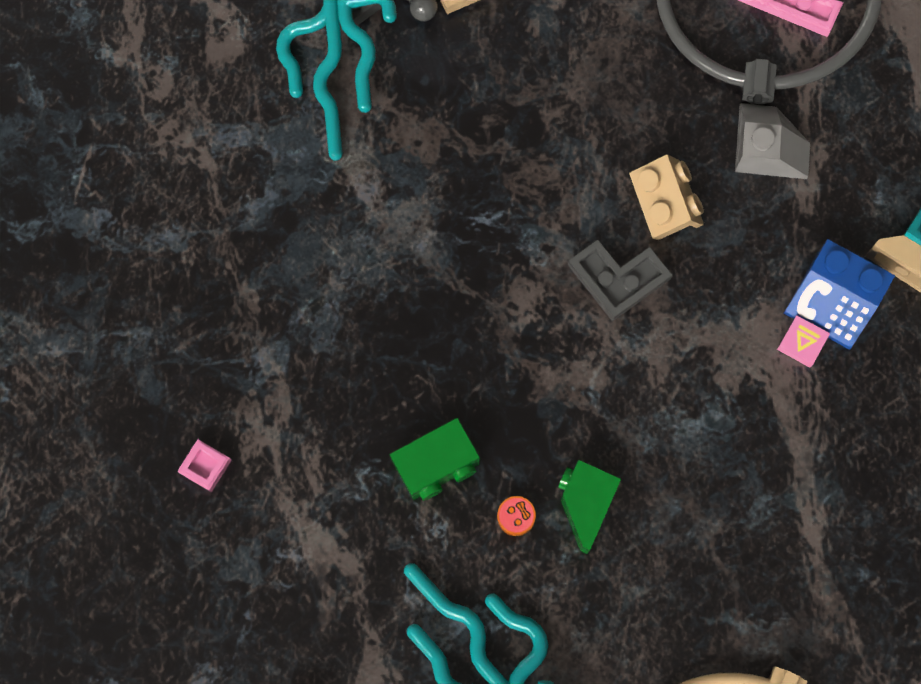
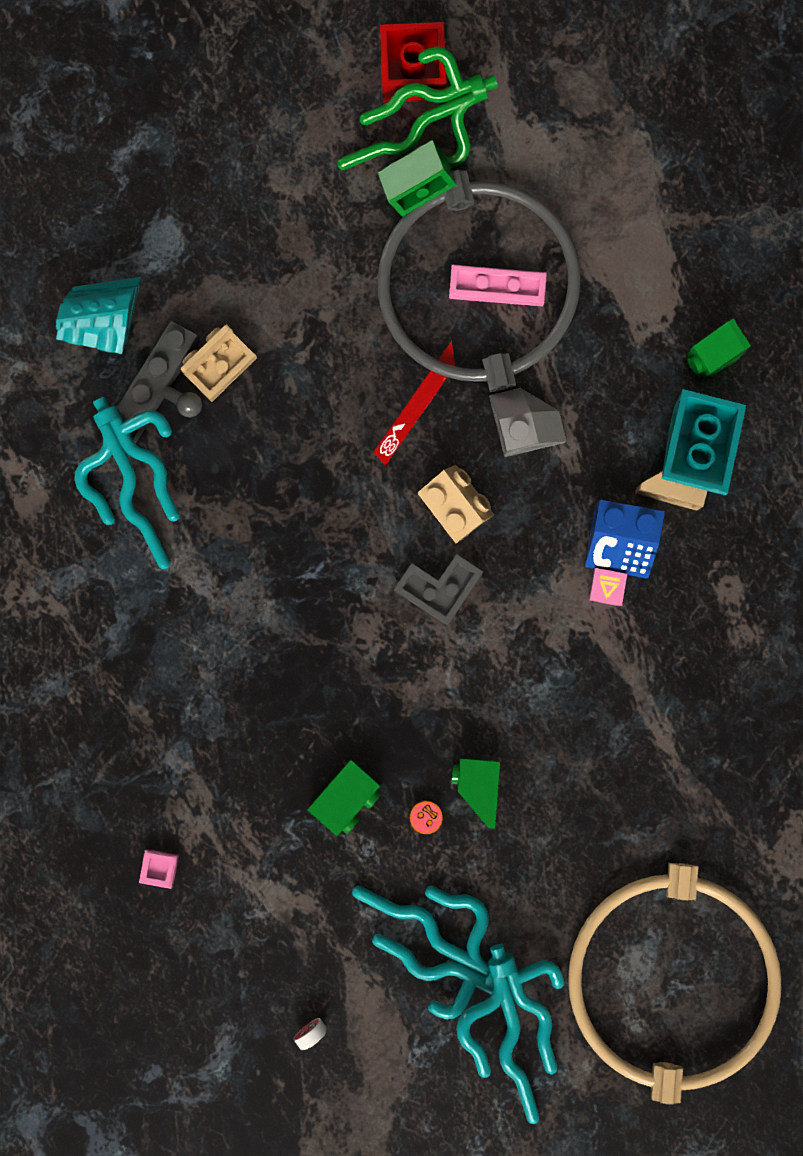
camera: 20 degrees left, 10 degrees up
(652, 93) = (413, 410): none -> red sticker

